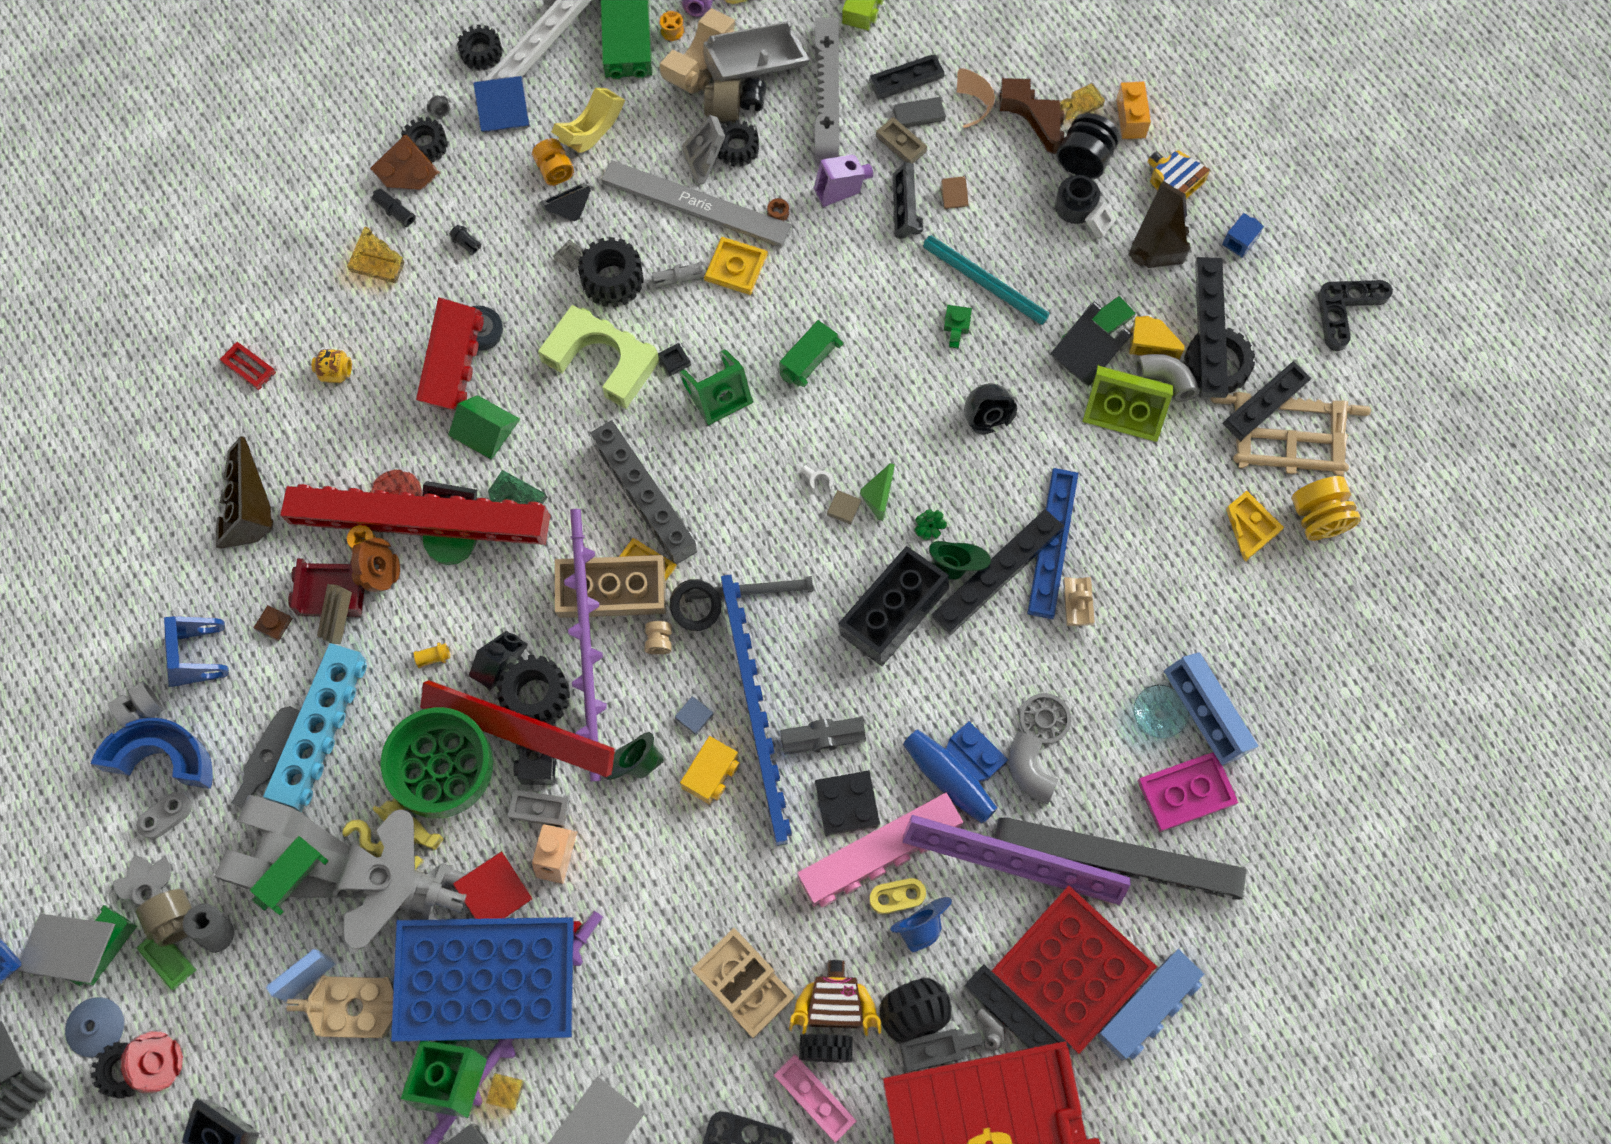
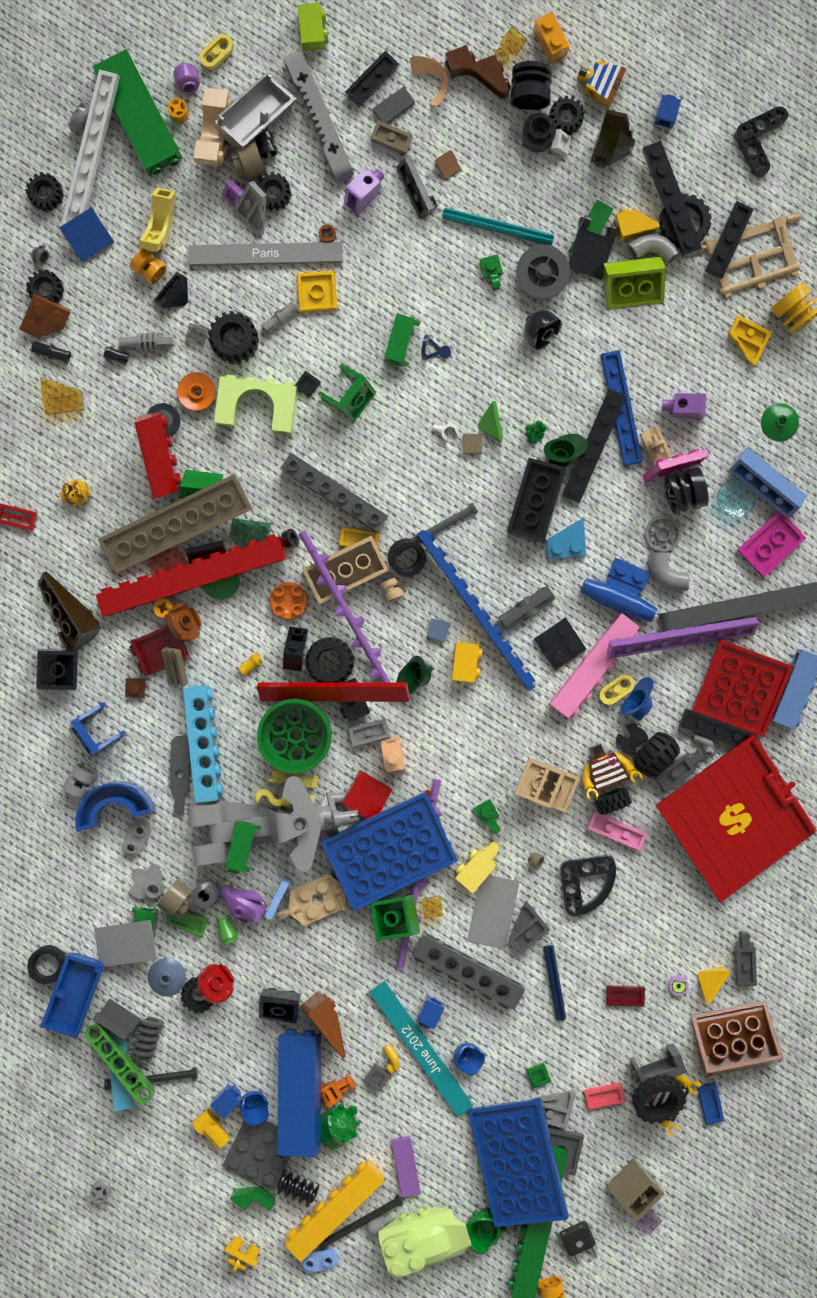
camera: 25 degrees left, 20 degrees up
(187, 554) = (56, 669): none -> black slope
(208, 997) = (226, 931): none -> bright green cone
(250, 966) = (243, 903): none -> medium lavender animal
(429, 444) = (175, 523): none -> dark tan plate
(508, 239) = (146, 341): none -> light grey hinge
(520, 597) = (288, 600): none -> orange dish
(536, 303) = (191, 383): none -> orange dish
(560, 523) = (290, 538): none -> black tile
(595, 1061) = (478, 867): none -> light yellow hinge
(644, 992) = (486, 813): none -> green plate
(679, 1088) = (536, 861): none -> dark tan hinge
(688, 124) = (232, 192): none -> medium lavender tile
(858, 390) = (444, 351): none -> dark blue piece
(883, 982) = (629, 745): none -> black piece
(913, 676) = (568, 542): none -> dark azure wing
(1018, 345) = (543, 271): none -> dark grey wheel
(1085, 631) = (664, 466): none -> dark pink wing
(1096, 671) = (690, 490): none -> black wheel
(1125, 184) = (574, 107): none -> black tyre
(1138, 569) = (694, 403): none -> medium lavender torso
(1248, 651) = (771, 425): none -> green dish

